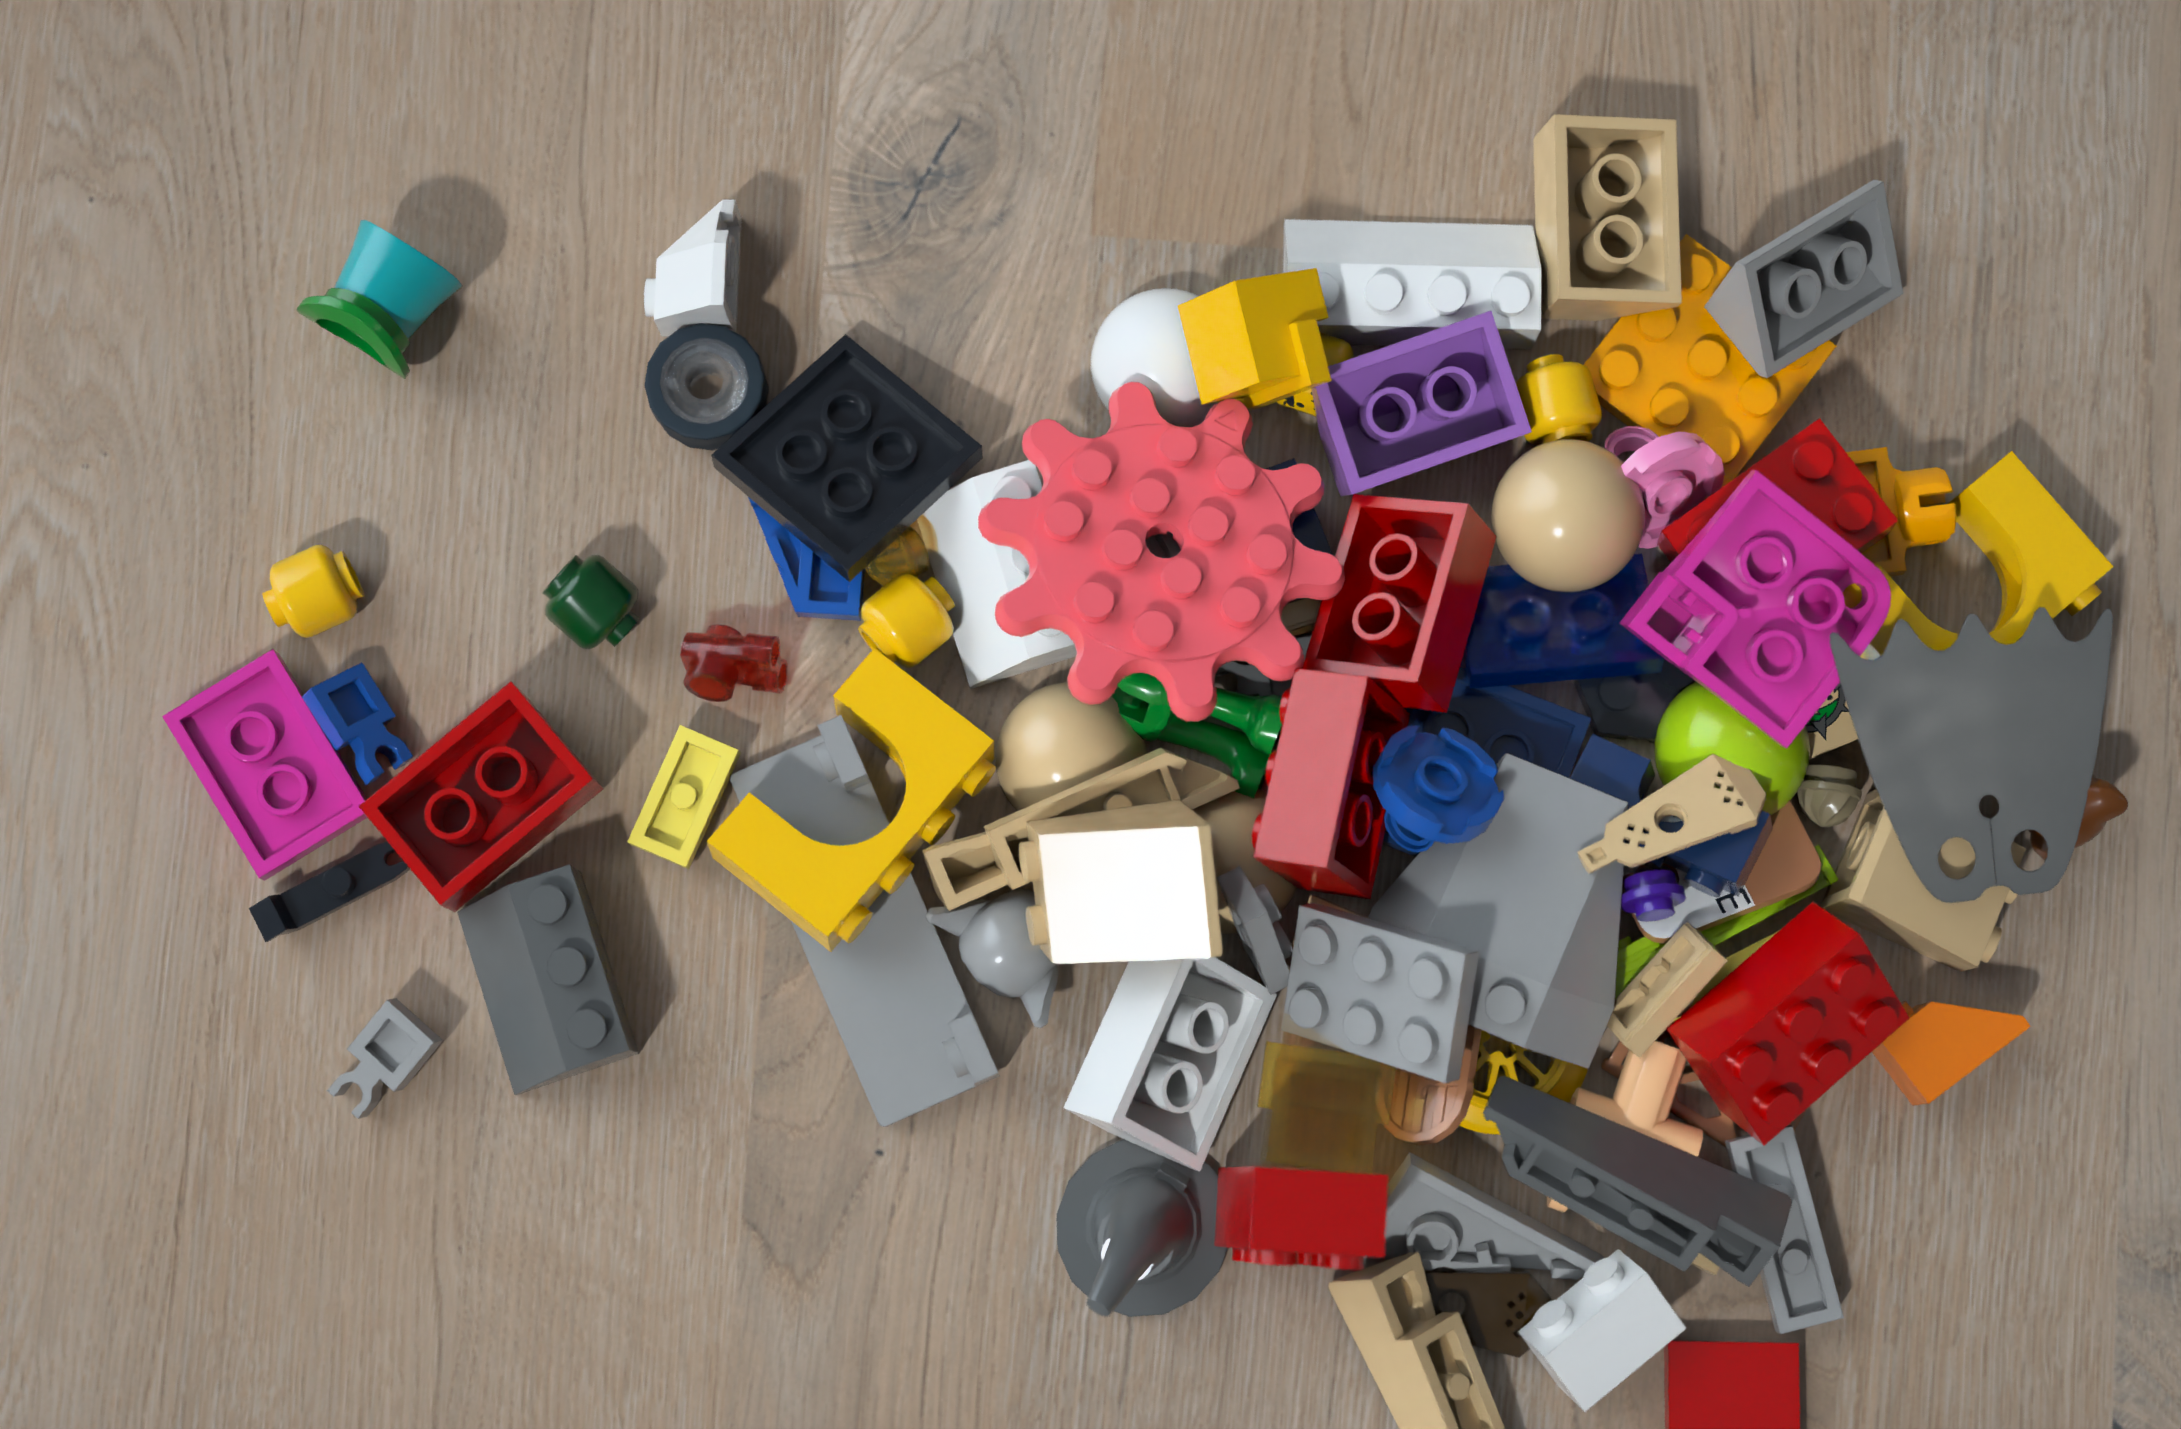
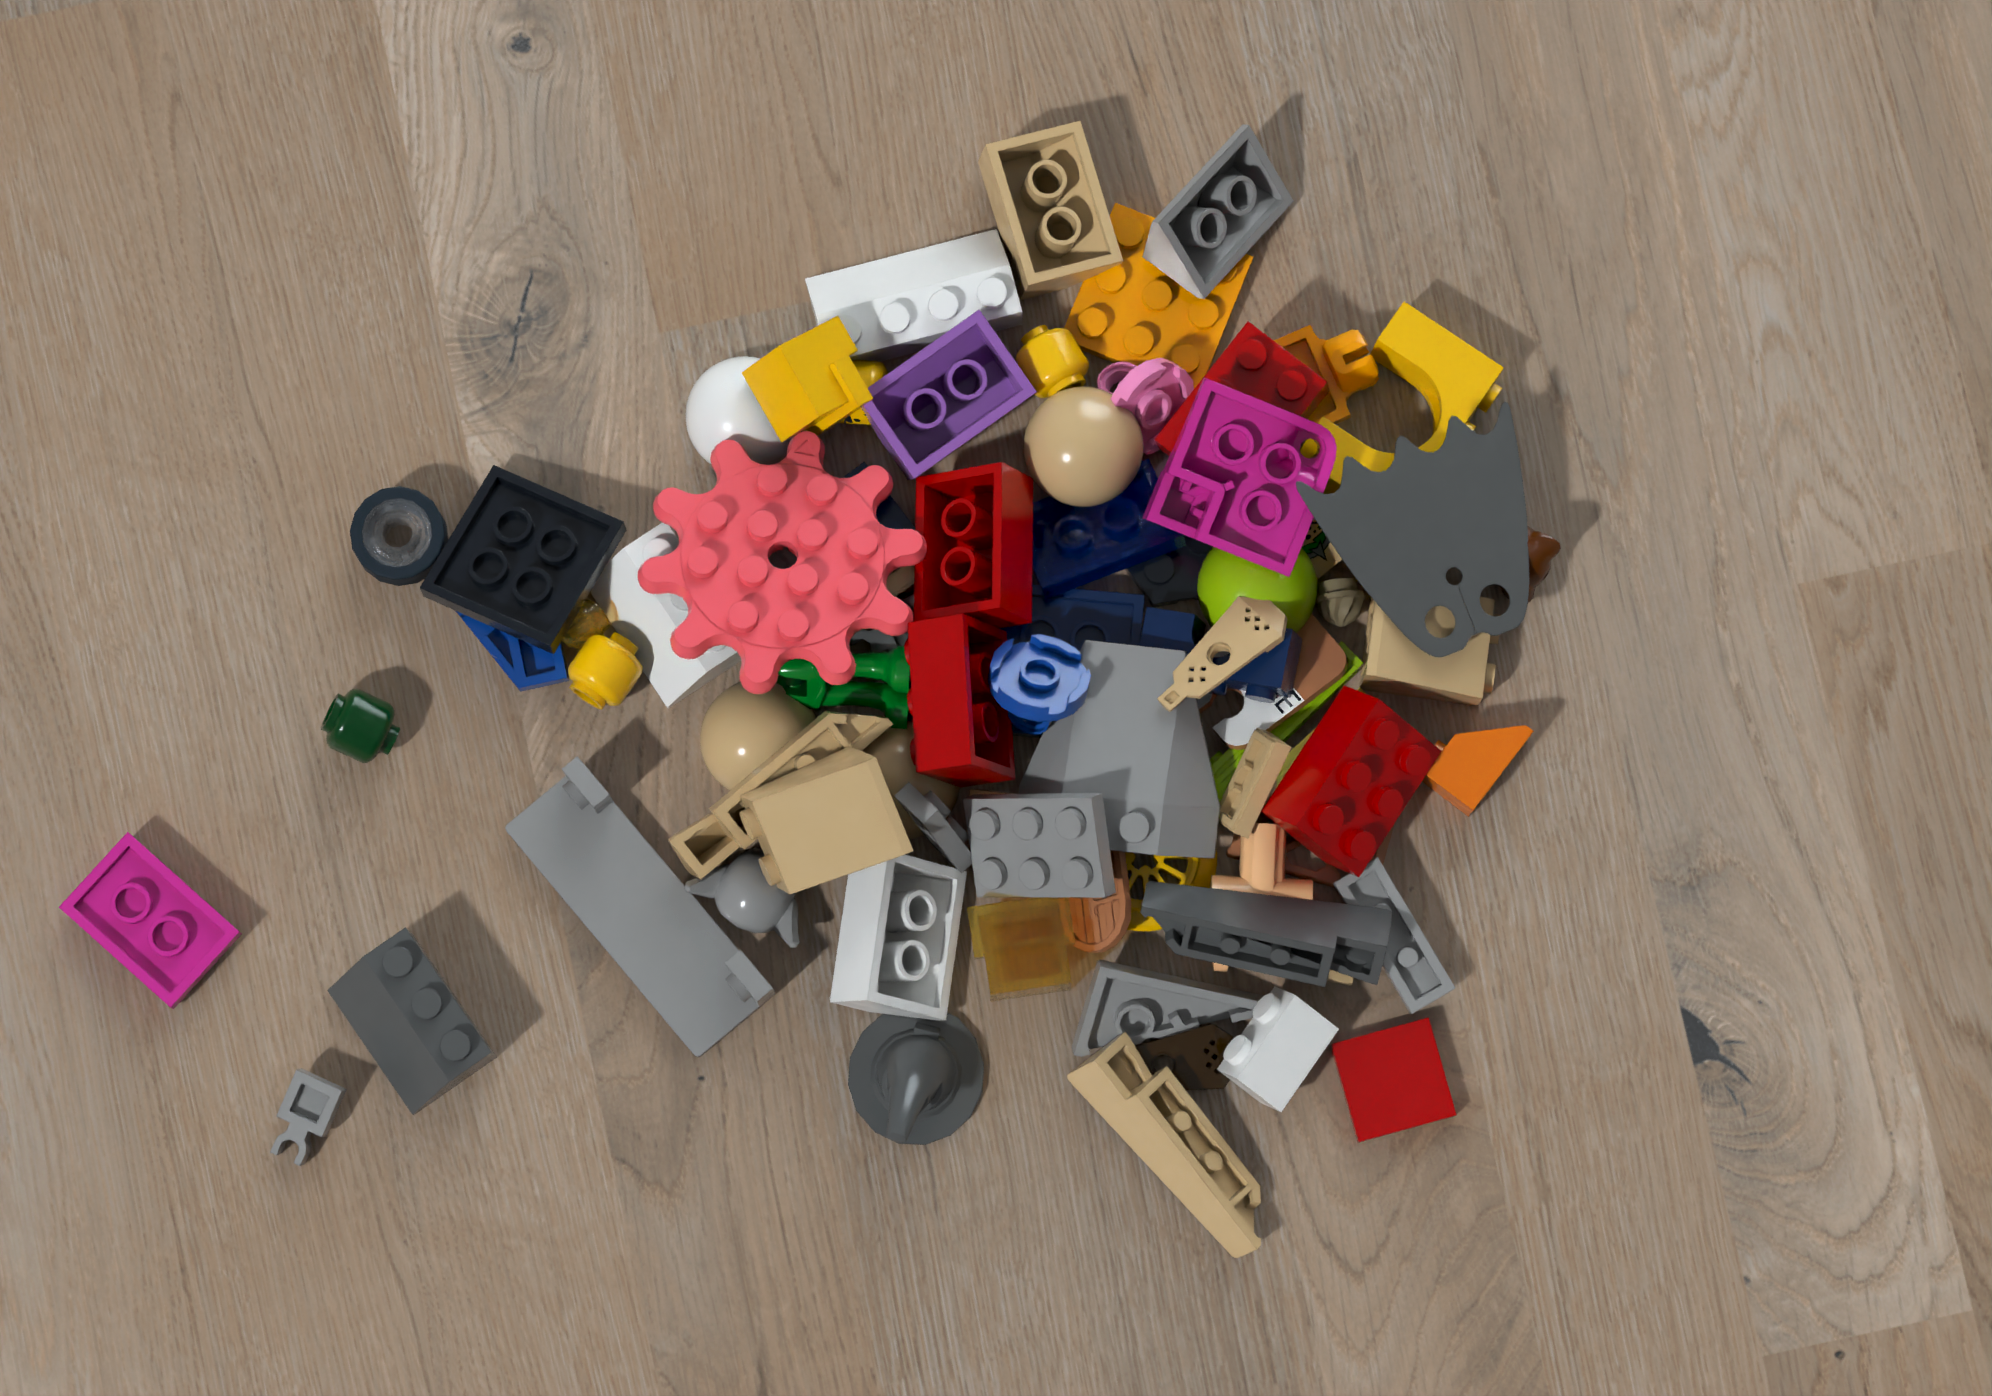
camera: 15 degrees left, 0 degrees up
(313, 591) = (144, 779): yellow head -> none
(326, 892) = (224, 1003): black piece -> none
(356, 713) = (206, 863): blue plate -> none
(381, 296) = (130, 539): hat -> none
(481, 797) = (322, 896): red brick -> none
(684, 797) = (474, 853): light yellow plate -> none
(699, 274) = (367, 452): white slope -> none
(726, 658) = (476, 738): clear red plate -> none
(832, 886) = (608, 886): yellow arch -> none
(1301, 1216) = (1025, 1025): red brick -> none
(1652, 895) = (1224, 715): dark purple plate -> none

